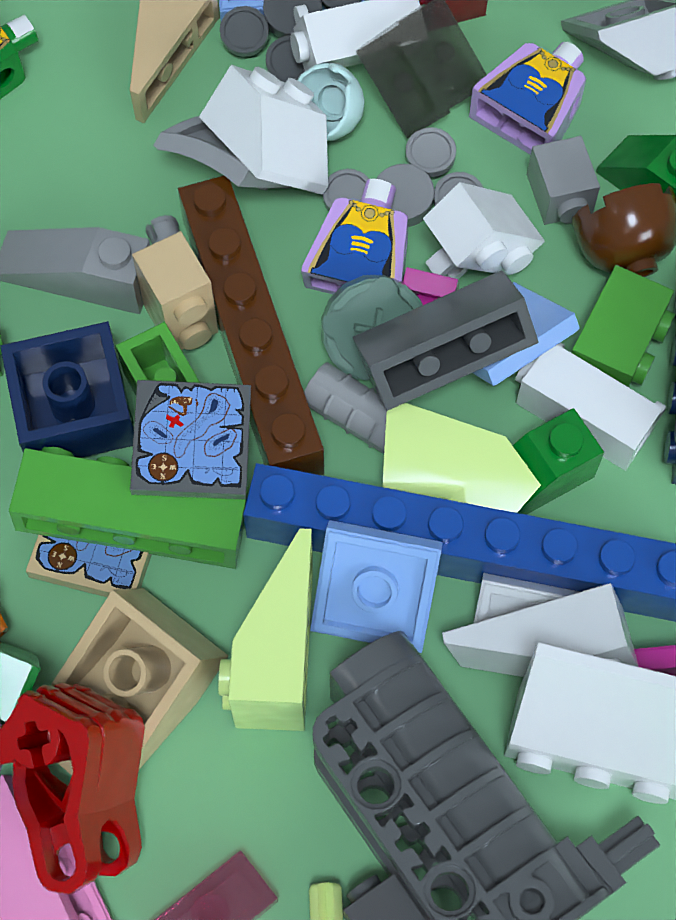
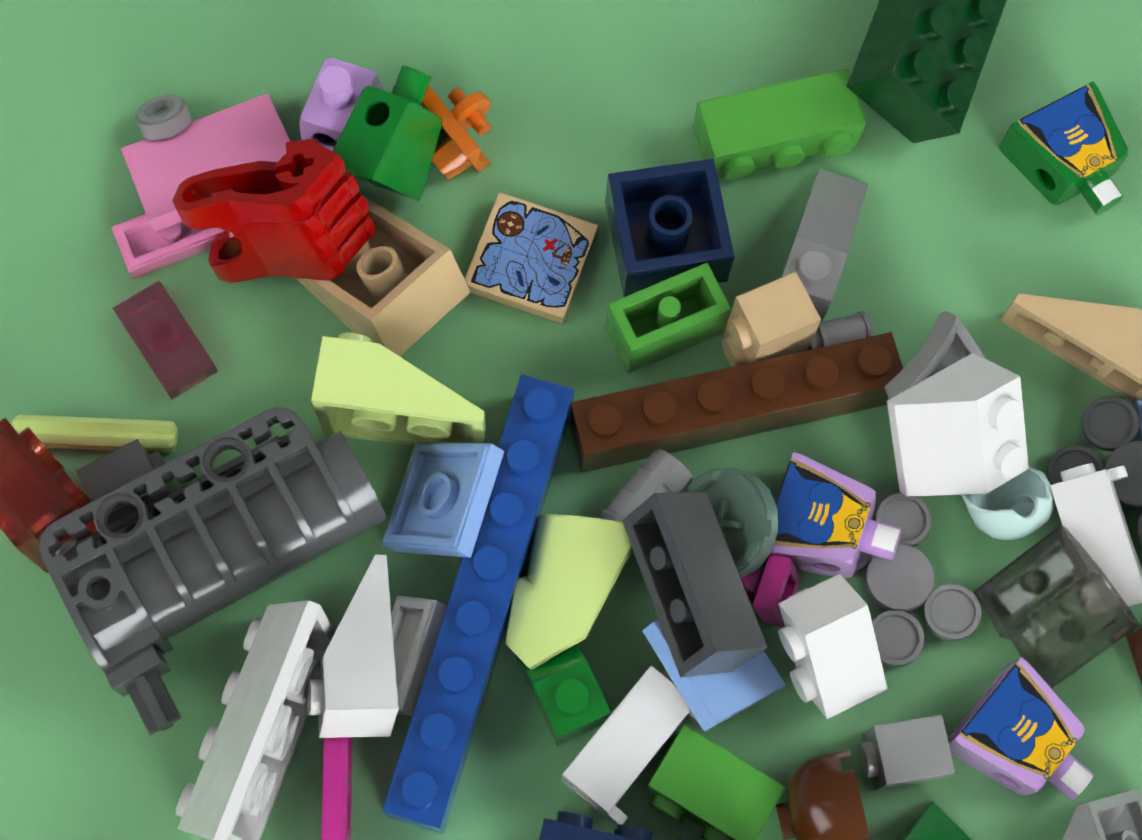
camera: 90 degrees right, 5 degrees up
(94, 505) = (545, 277): bright green brick -> none
(191, 439) = (595, 324): tile -> none

